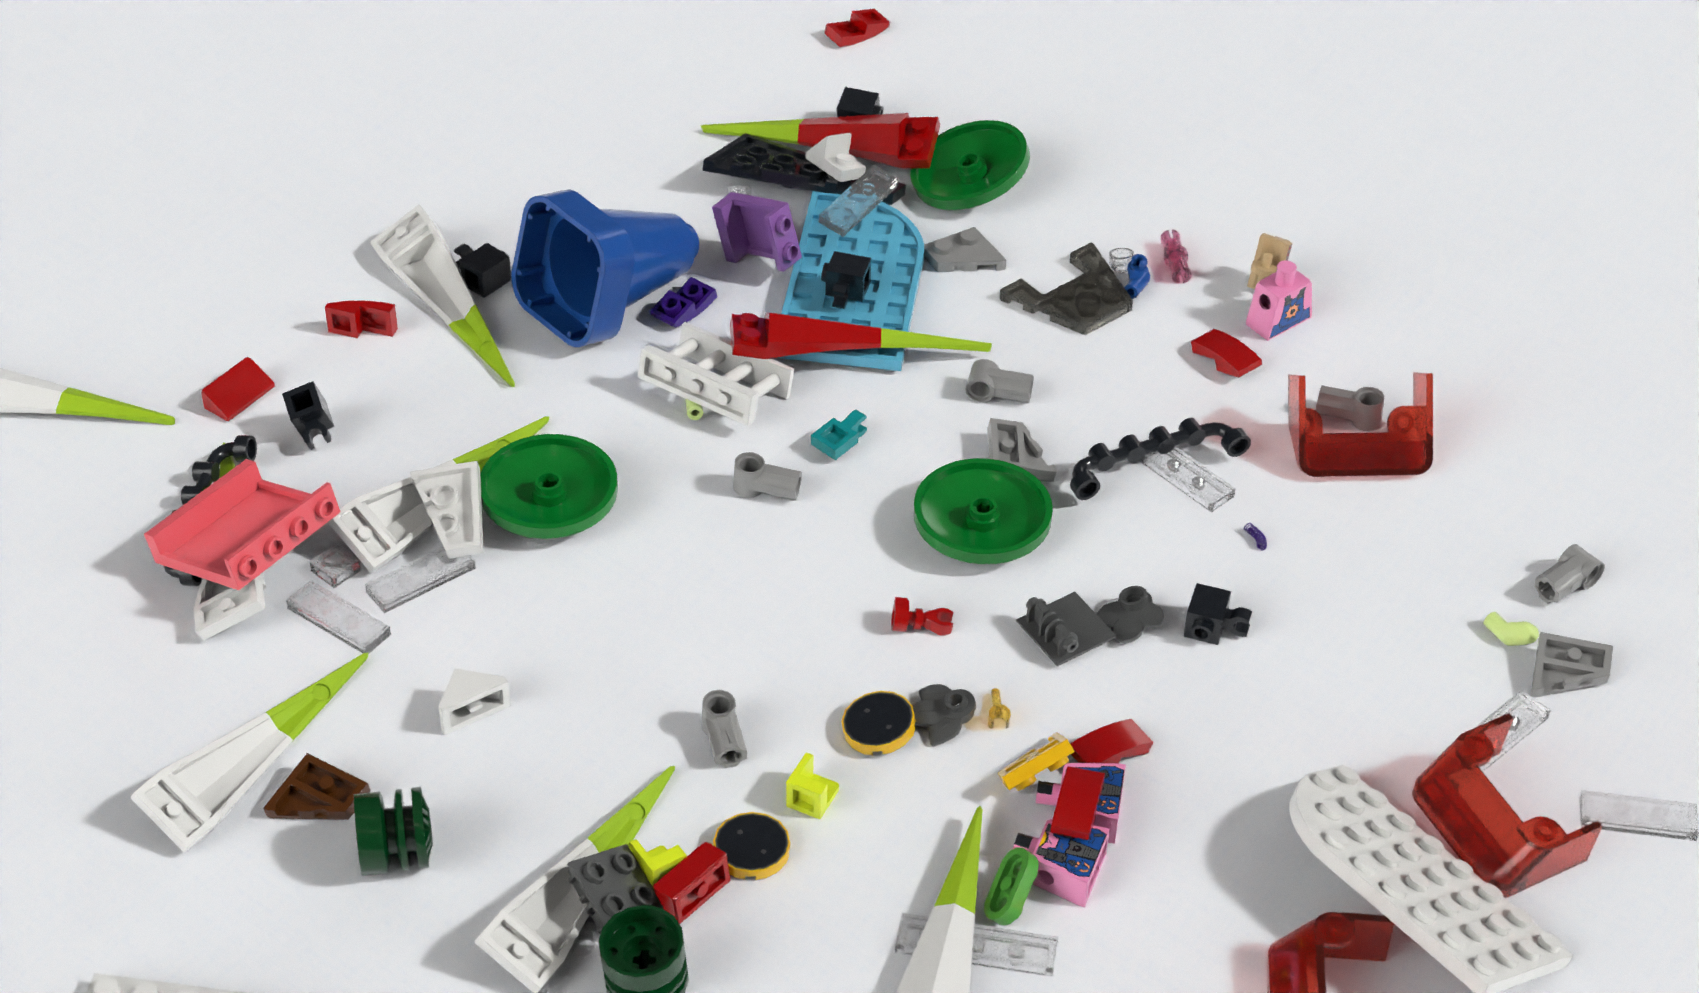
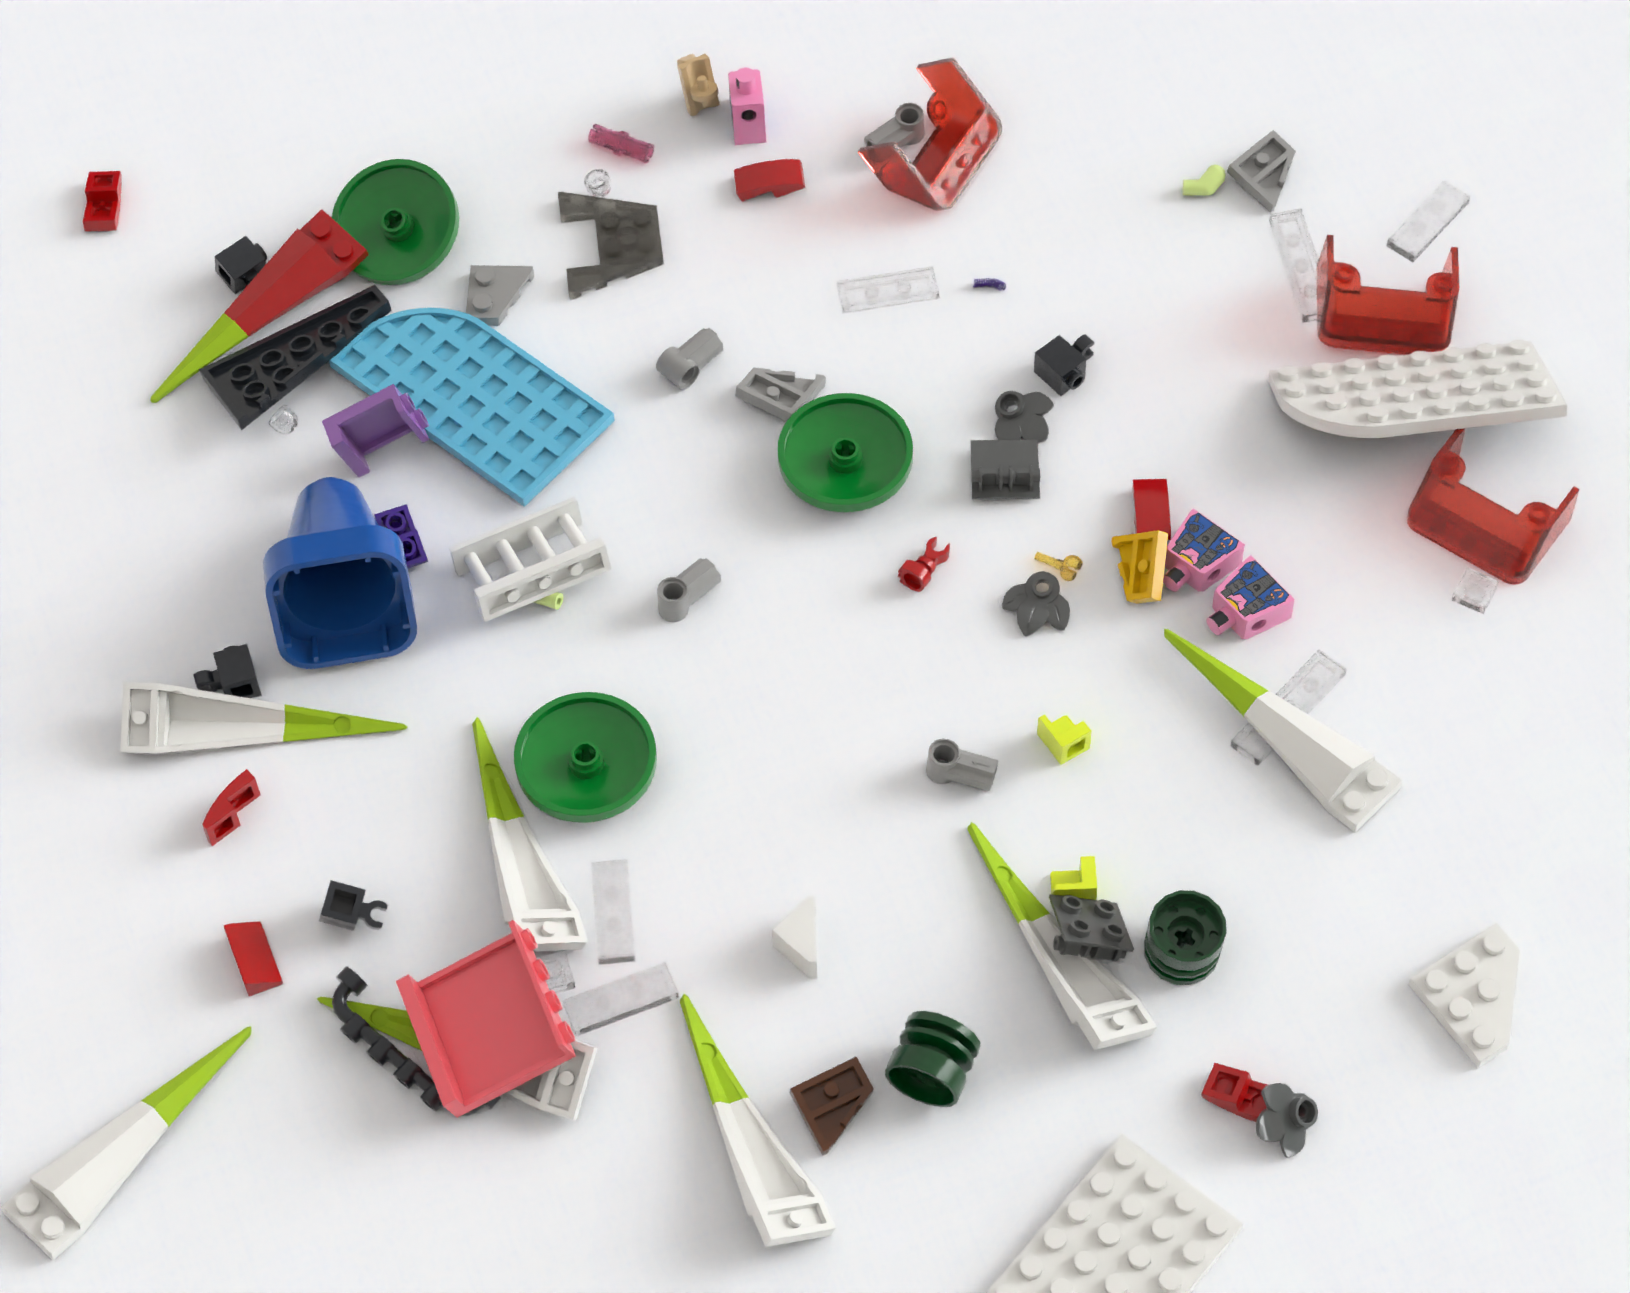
camera: 55 degrees left, 15 degrees up
(453, 505) = (566, 841): white wing -> none
(693, 881) = (1113, 866): red slope -> none
(753, 845) = (1093, 809): black tile -> none
(792, 335) = (529, 480): red plate -> none
(834, 158) = (304, 321): white slope -> none
(838, 437) = (669, 509): teal plate -> none
(846, 278) = (487, 395): black brick -> none
(858, 200) = (382, 331): clear tile -> none
(878, 722) = (1024, 652): black tile -> none
(1011, 886) = (1257, 652): bright green plate -> none
(1077, 803) = (1221, 560): red slope -> none
(1086, 485) = (850, 284): black bar -> none
(1138, 275) = (627, 184): blue arm -> none
(1573, 569) = (1176, 105): light grey piece -> none

